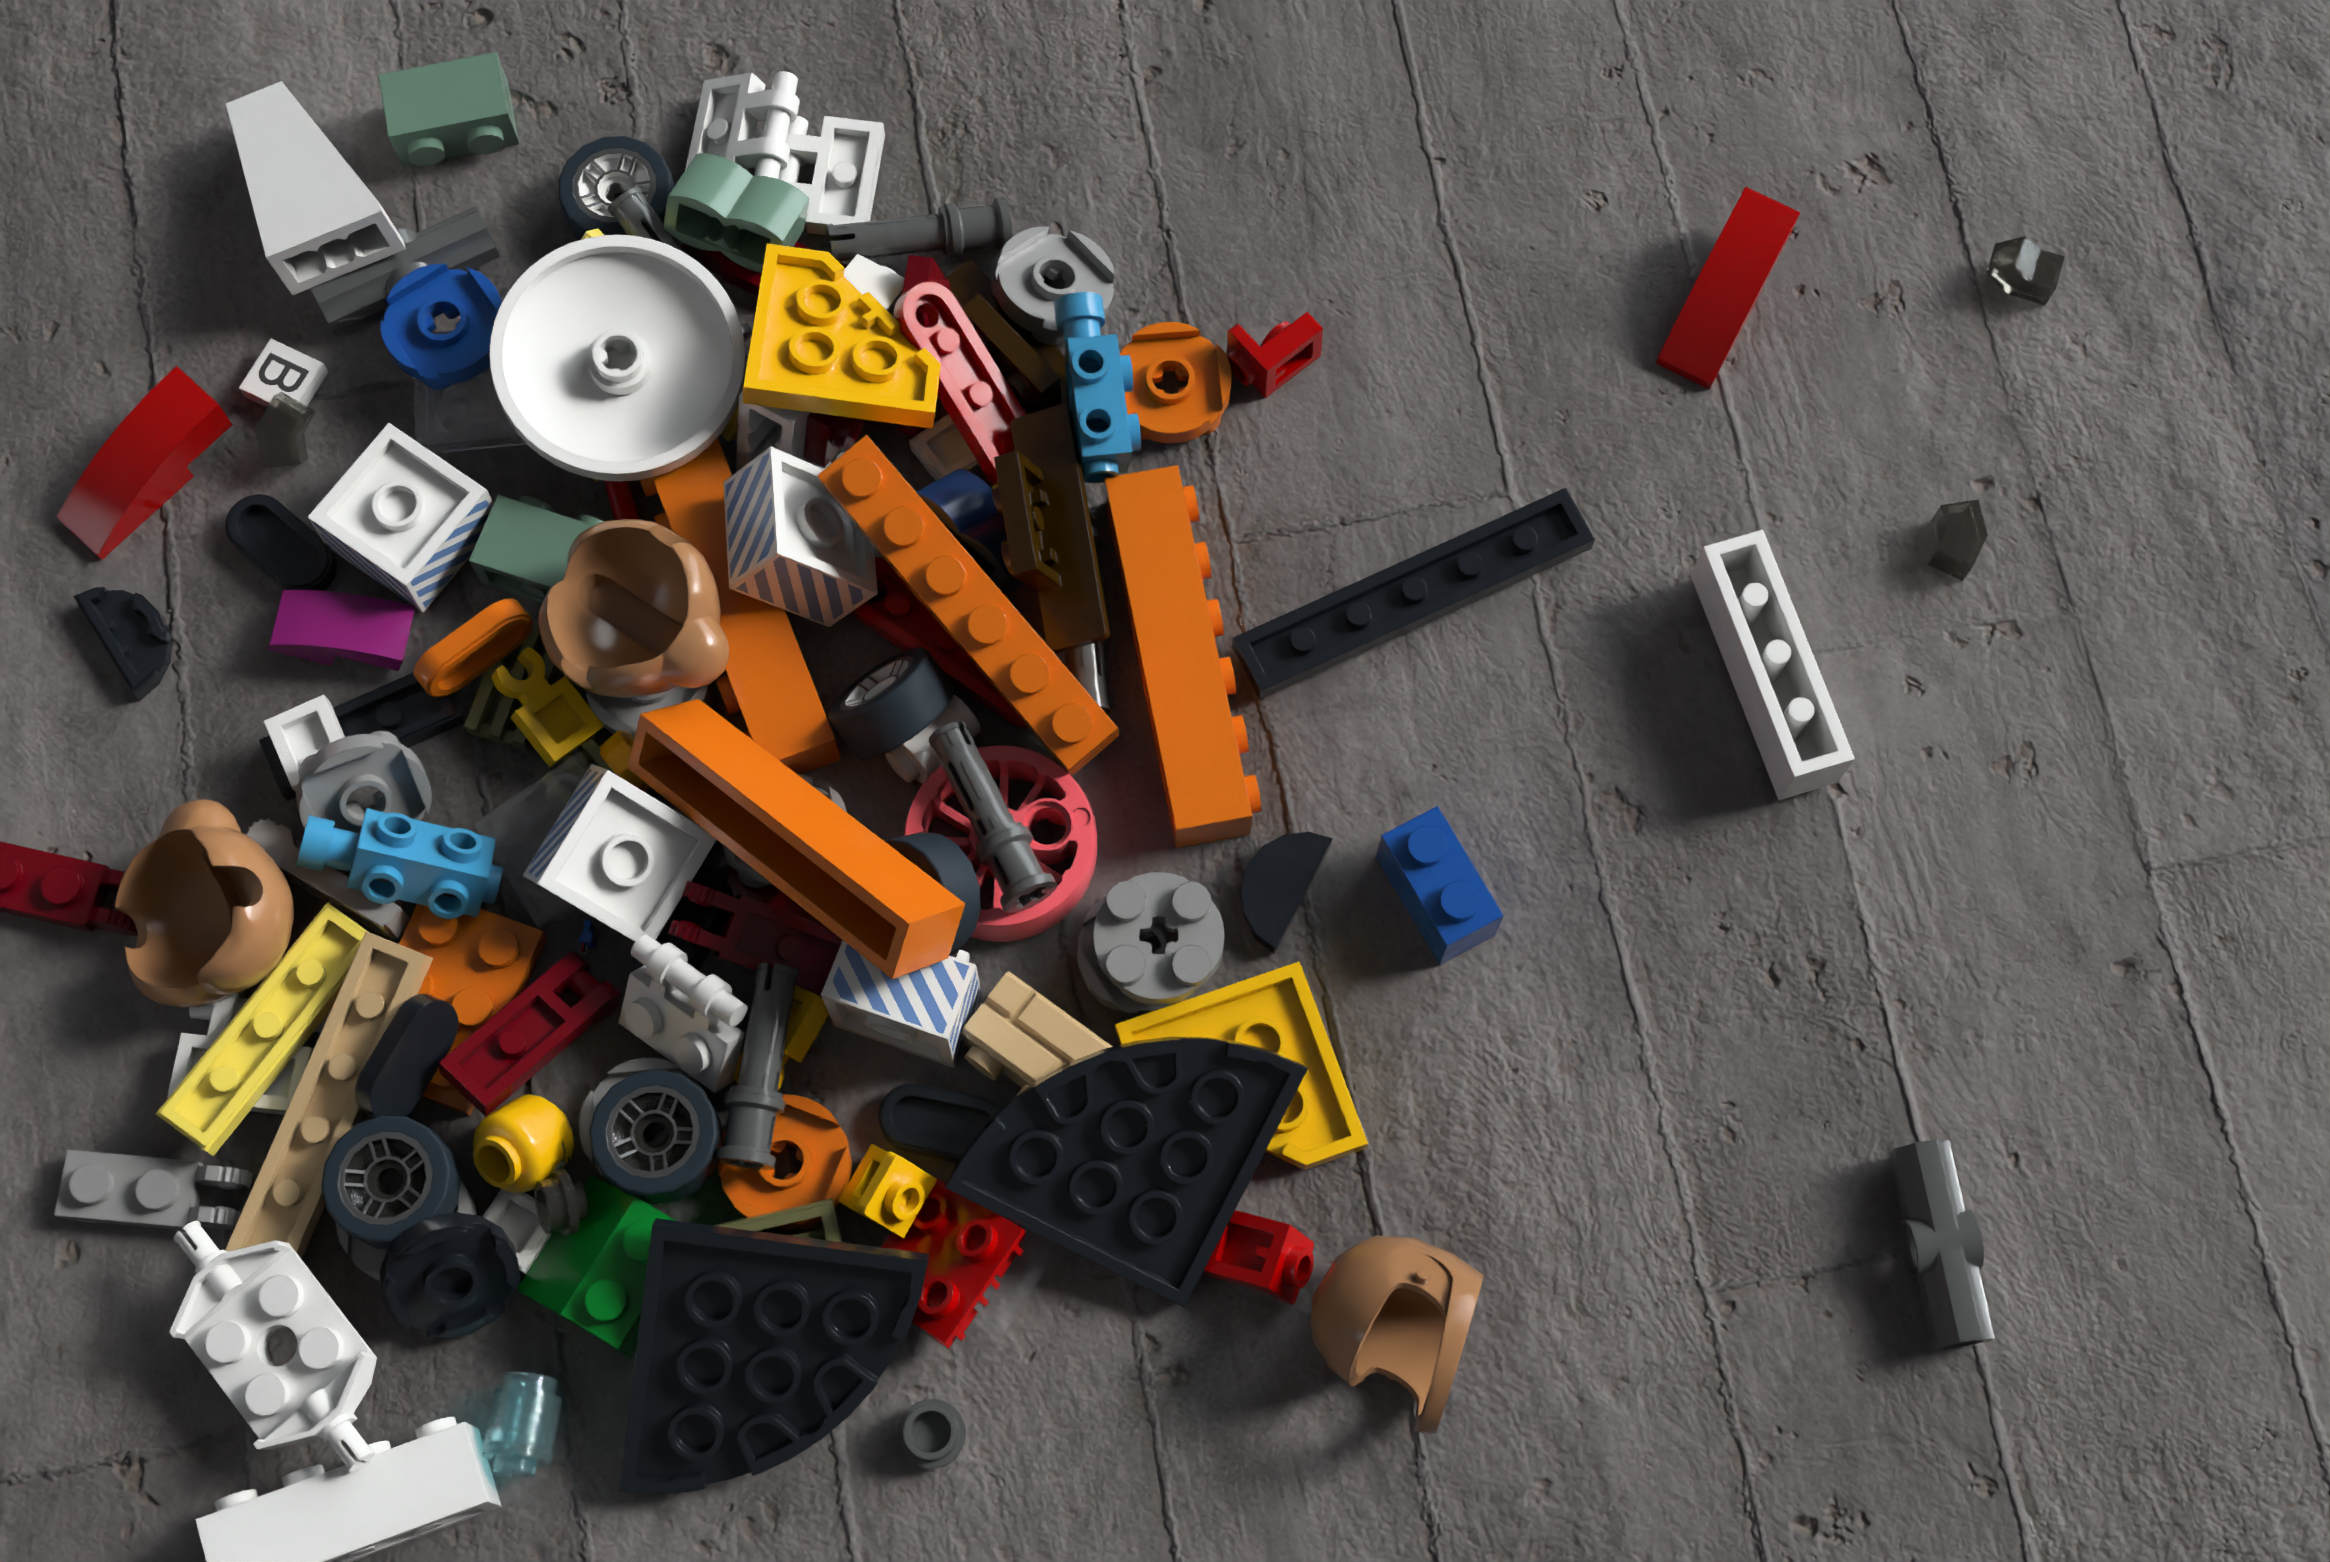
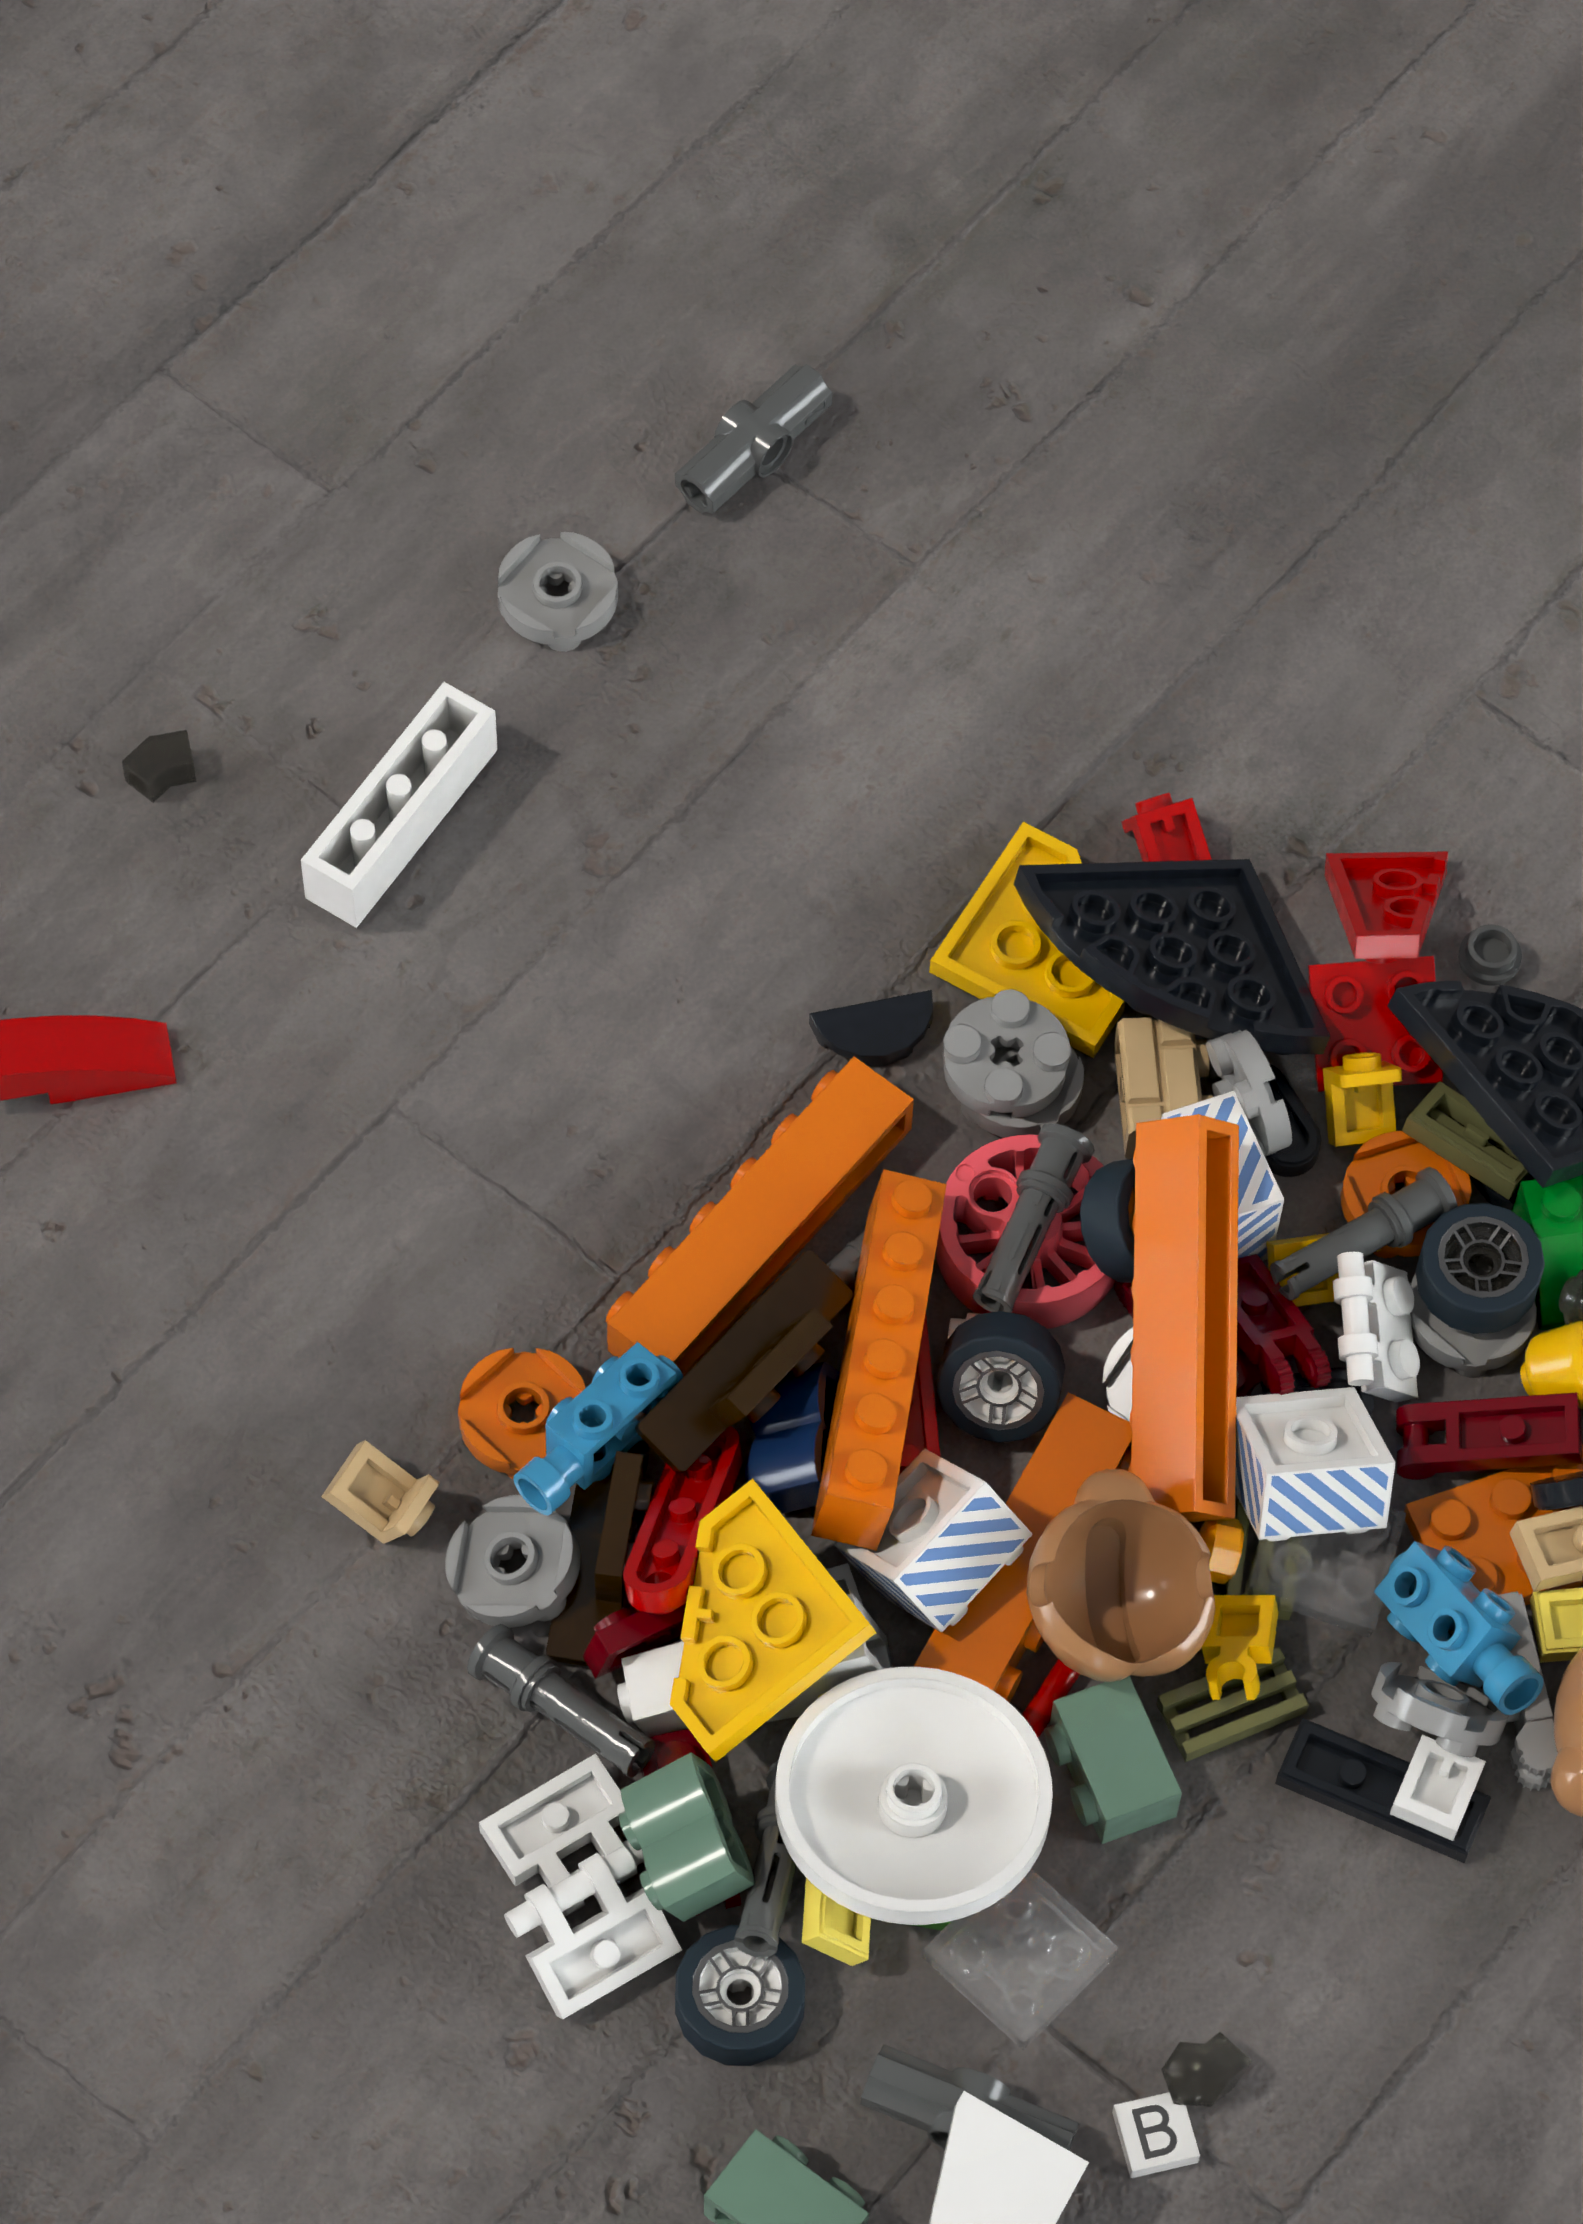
camera: 130 degrees left, 10 degrees down
(132, 635) = (1479, 2052): black tile -> none
(142, 462) = (1338, 2165): red slope -> none
(280, 544) = (1296, 1999): black tile -> none
(344, 625) = (1321, 1869): magenta slope -> none
(403, 517) = (1190, 1886): white container -> none
(410, 320) = (1018, 2037): blue plate -> none
(473, 648) = (1247, 1728): orange tile -> none
(949, 1076) = (1247, 1072): none -> light grey plate
(1038, 1366) = (1386, 900): none -> red wing
(1184, 240) = (381, 1494): none -> tan bracket
(1281, 355) = (426, 1339): red bracket -> none
(1397, 1313) = (1137, 717): medium nougat piece -> none
(1412, 593) = (553, 1100): black plate -> none
(1439, 885) = (784, 909): blue brick -> none
(1920, 930) = (563, 619): none -> light grey plate

